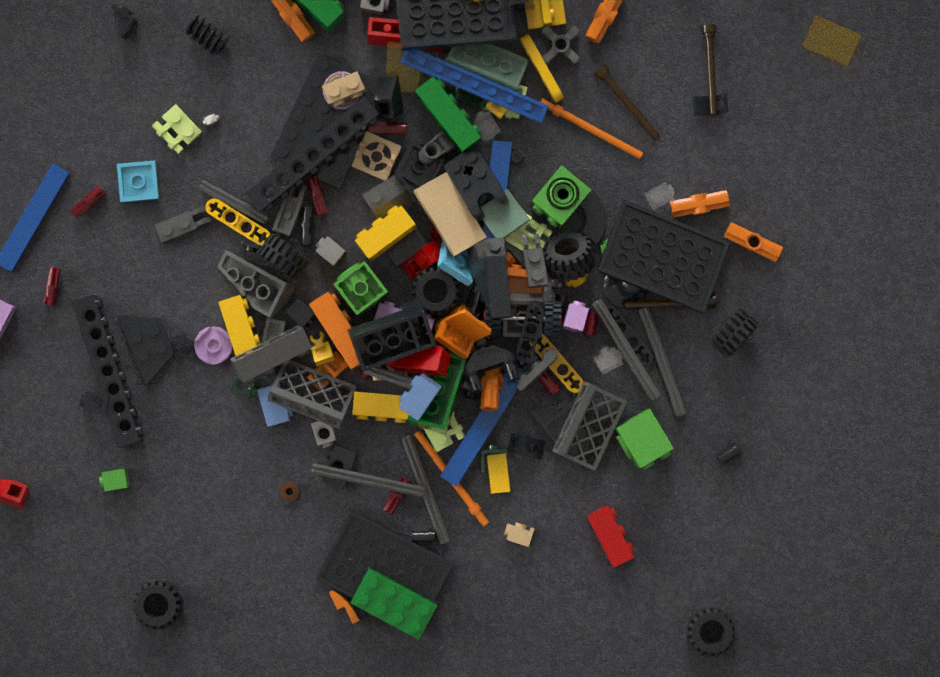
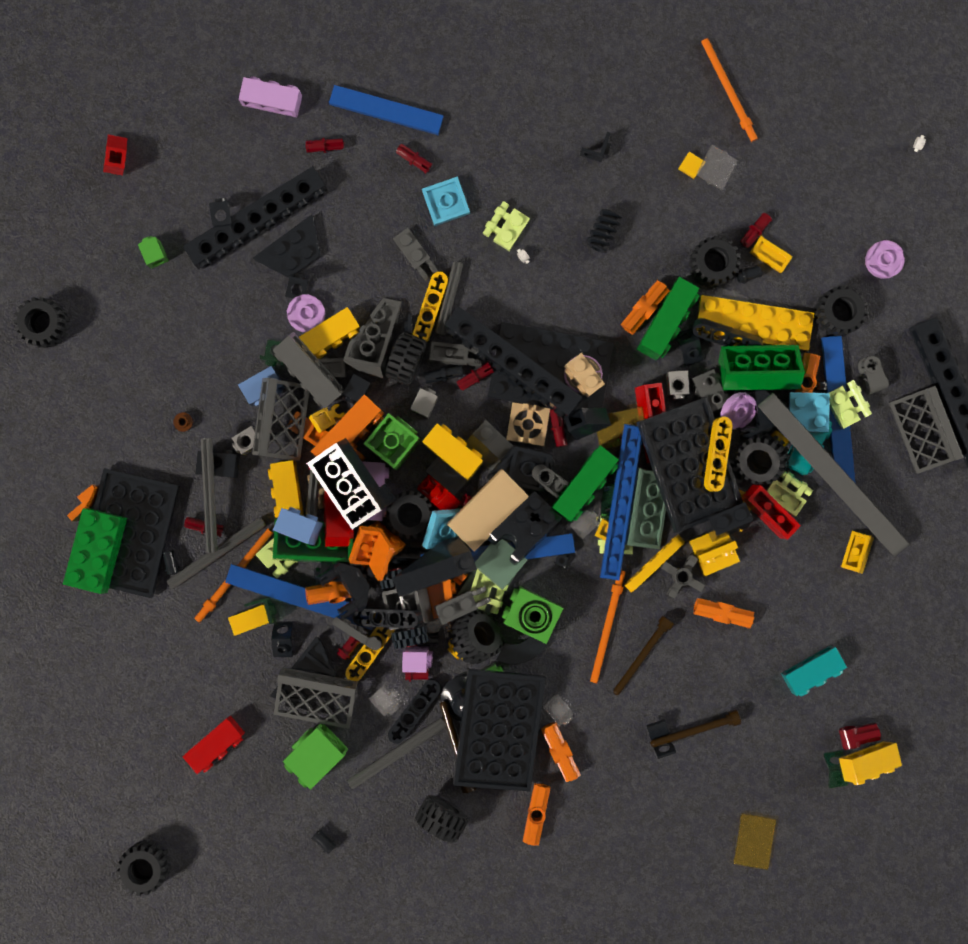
camera: 80 degrees right, 0 degrees up
(519, 534) = (194, 655): tan brick -> none
(626, 349) = (399, 715): dark grey axle -> none

